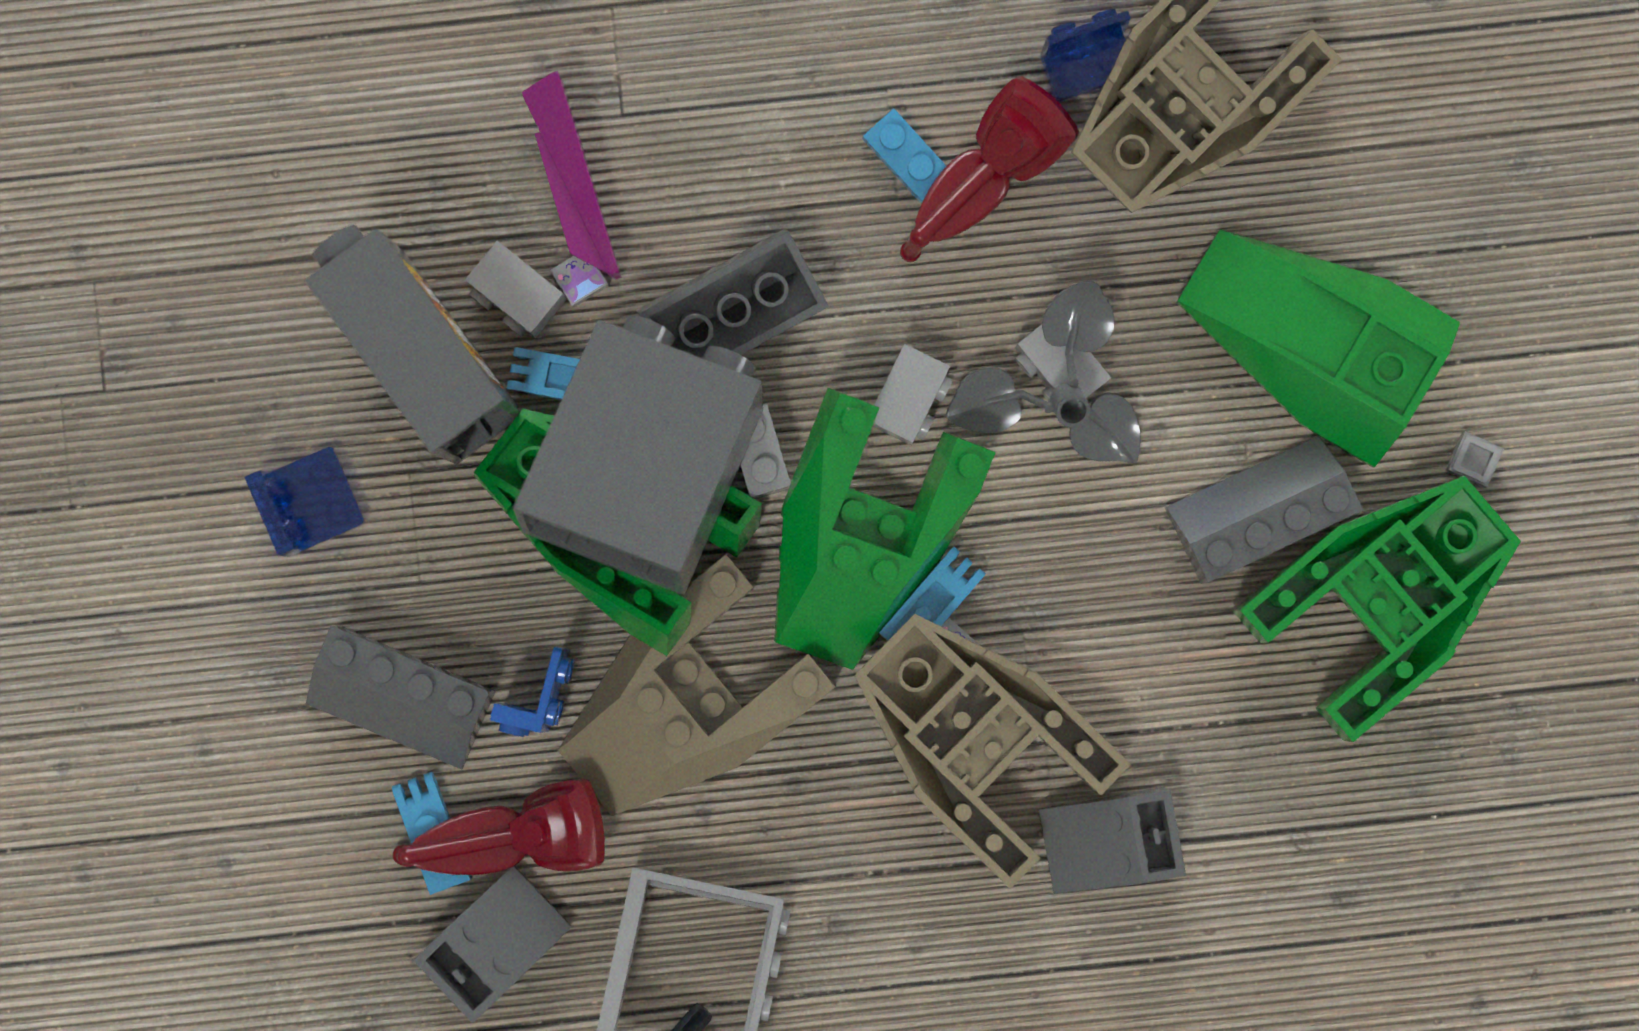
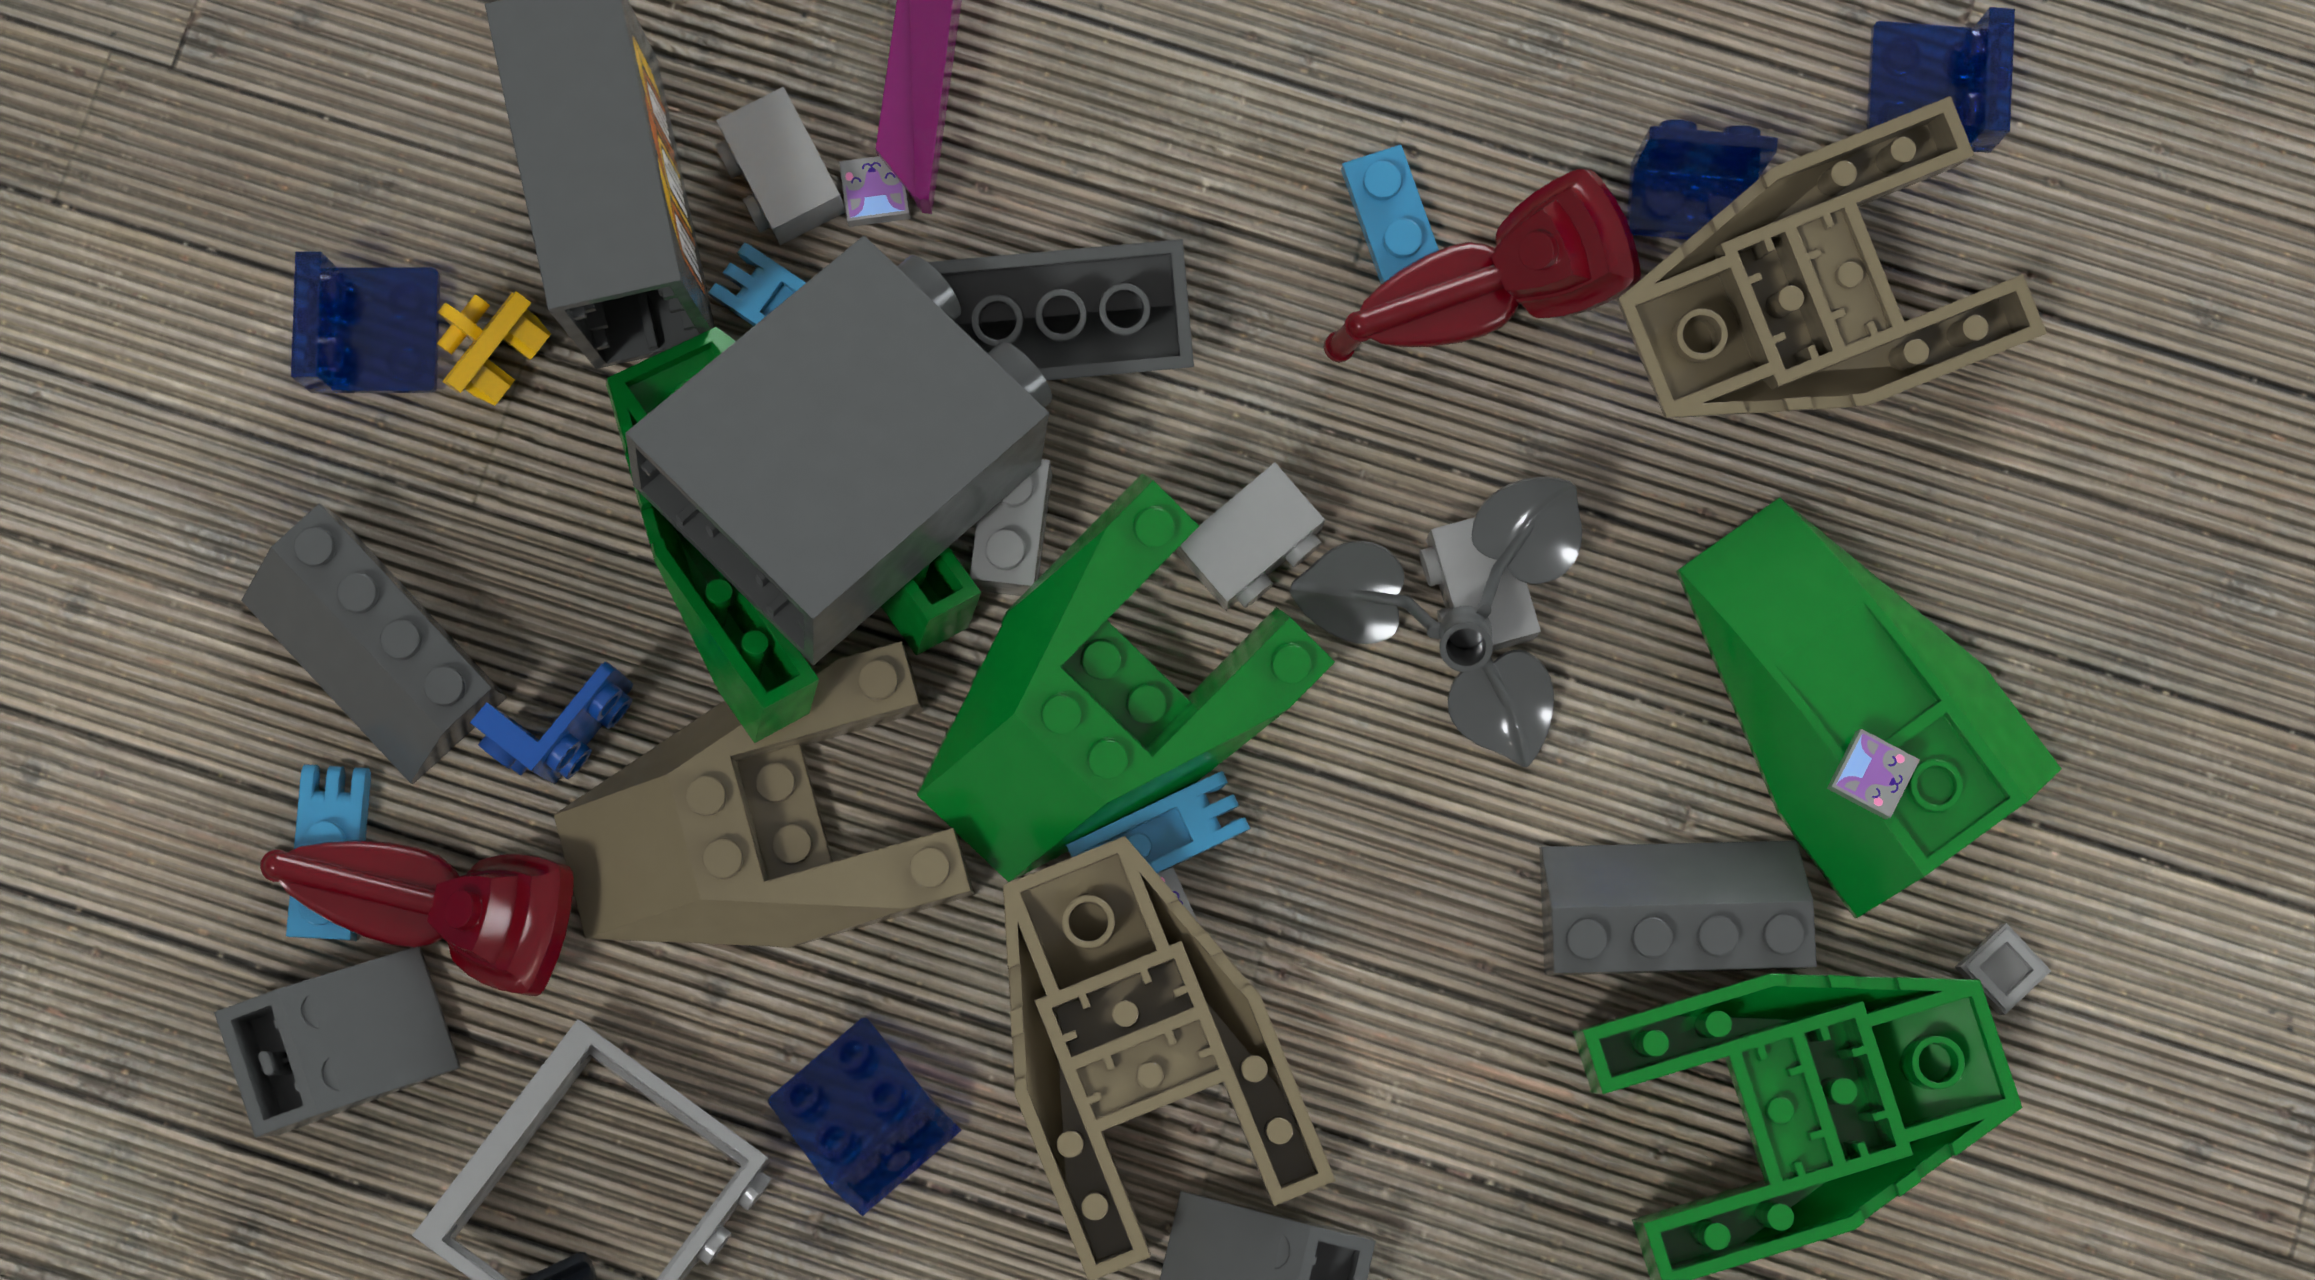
camera: 20 degrees right, 5 degrees down
(391, 461) = (474, 369): none -> yellow hips
(827, 849) = (862, 1117): none -> clear blue bracket
(1349, 379) = (1873, 774): none -> tile

